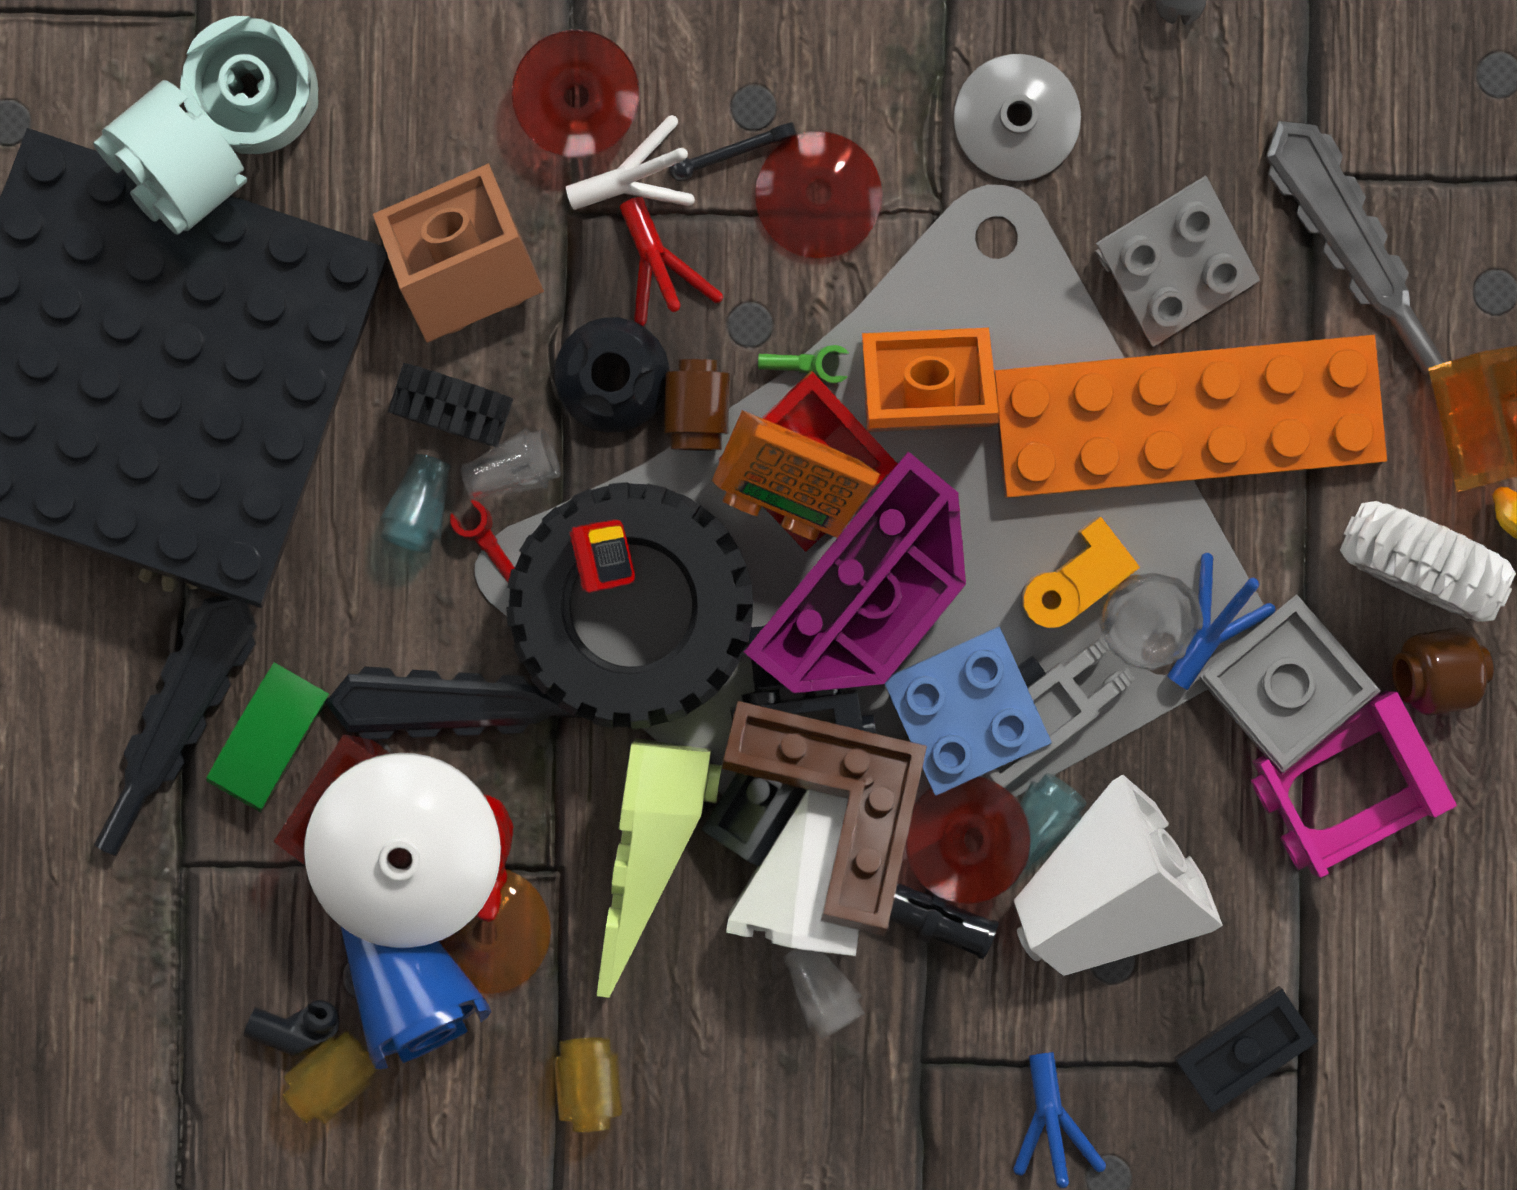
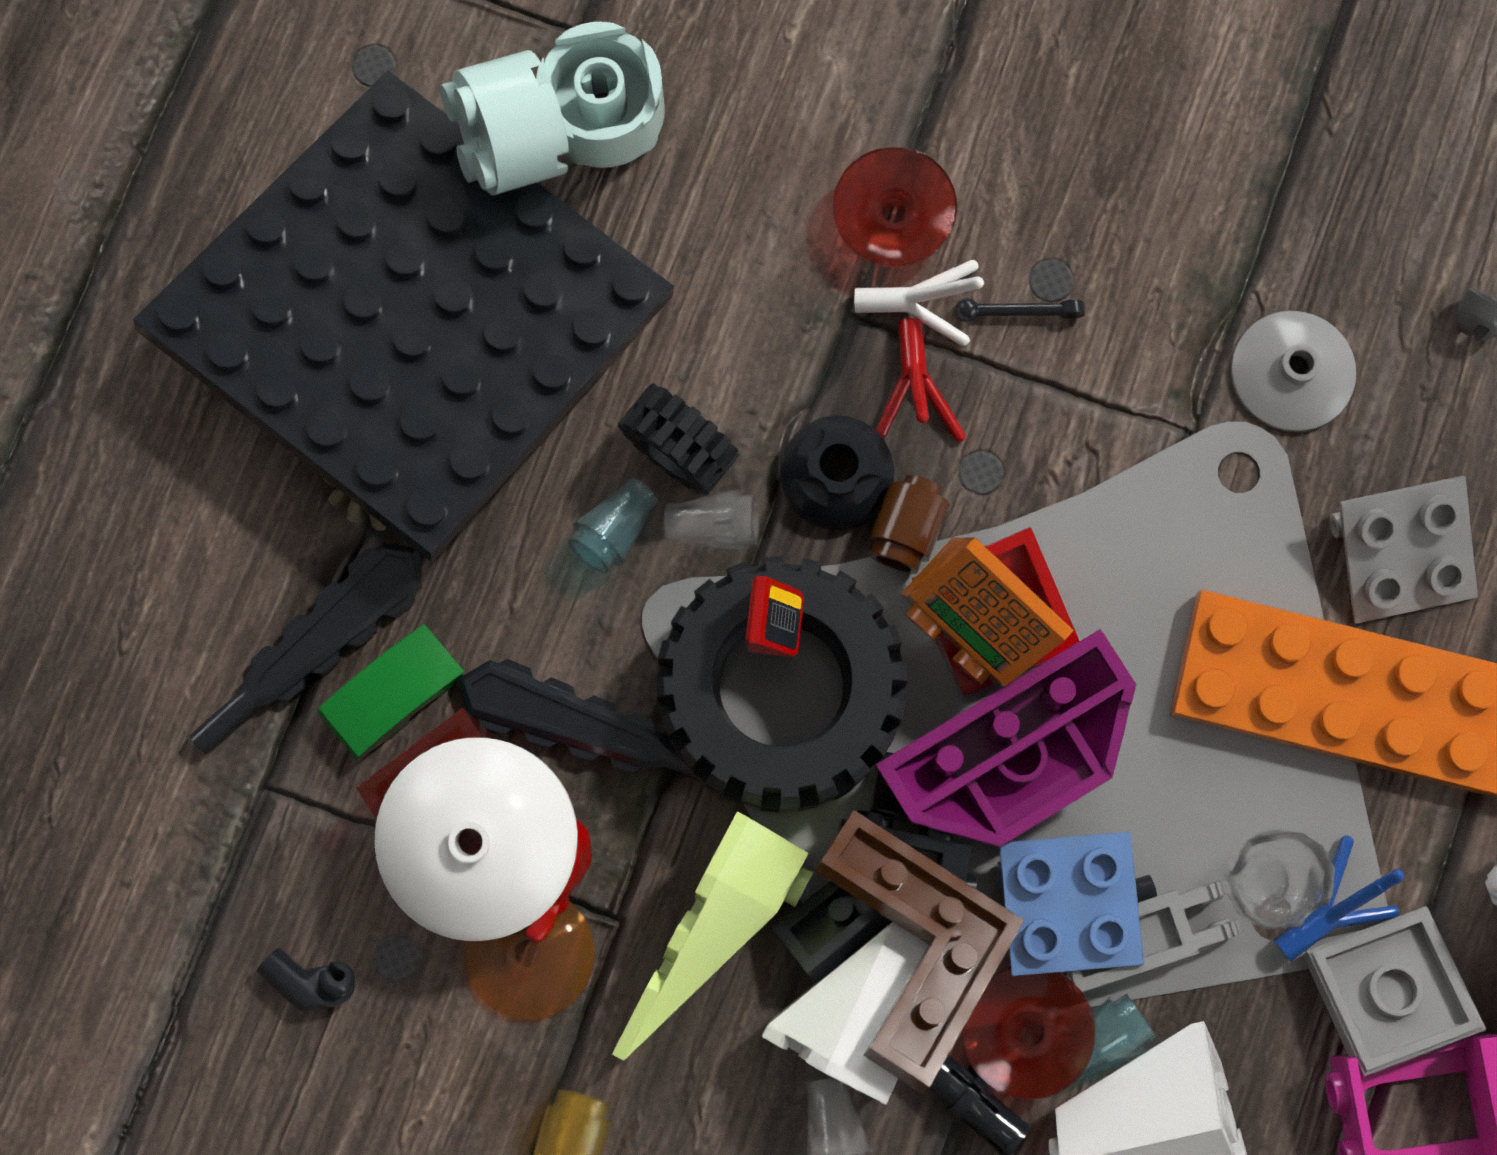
camera: 20 degrees right, 10 degrees down
(329, 1078) = (322, 1043): clear yellow brick -> none
(409, 998) = (429, 991): blue cone -> none
(457, 253) = (736, 312): nougat slope -> none
(485, 539) = (663, 579): red hand -> none
(803, 363) = (1023, 521): bright green hand -> none
(813, 228) = (1076, 404): clear red dish -> none
(929, 380) = (1136, 581): orange slope -> none
(1061, 595) = (1197, 824): light orange leg -> none

